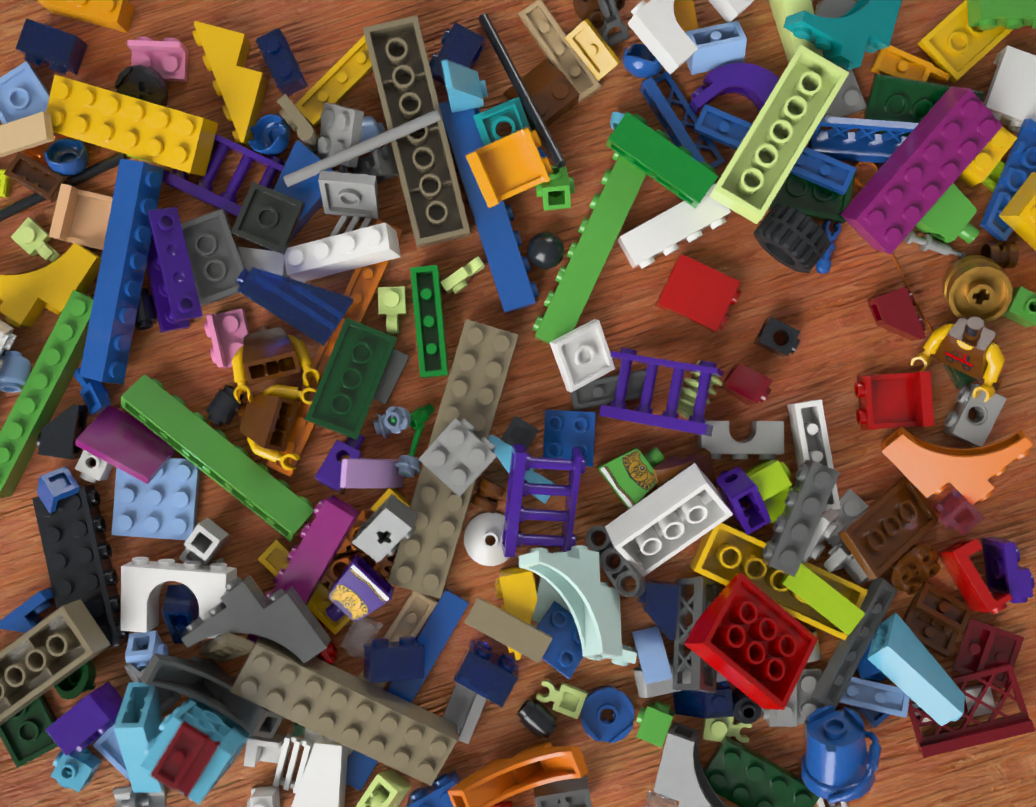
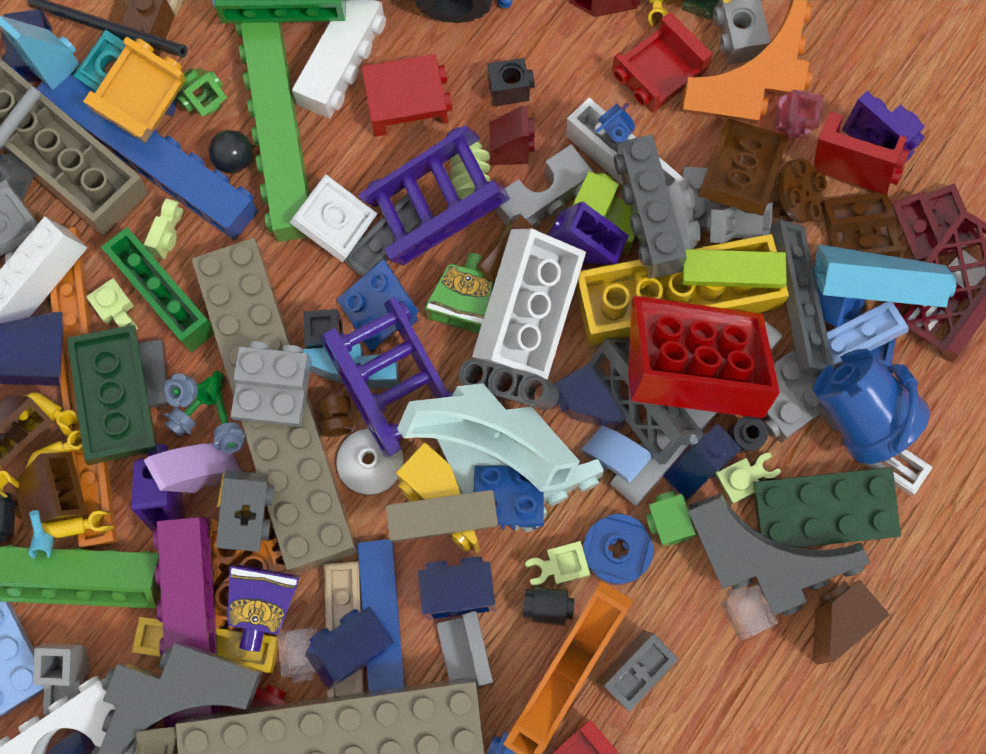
camera: 30 degrees left, 15 degrees down
(244, 449) = (40, 539): none -> medium azure hand
(822, 442) = (617, 123): none -> blue hinge

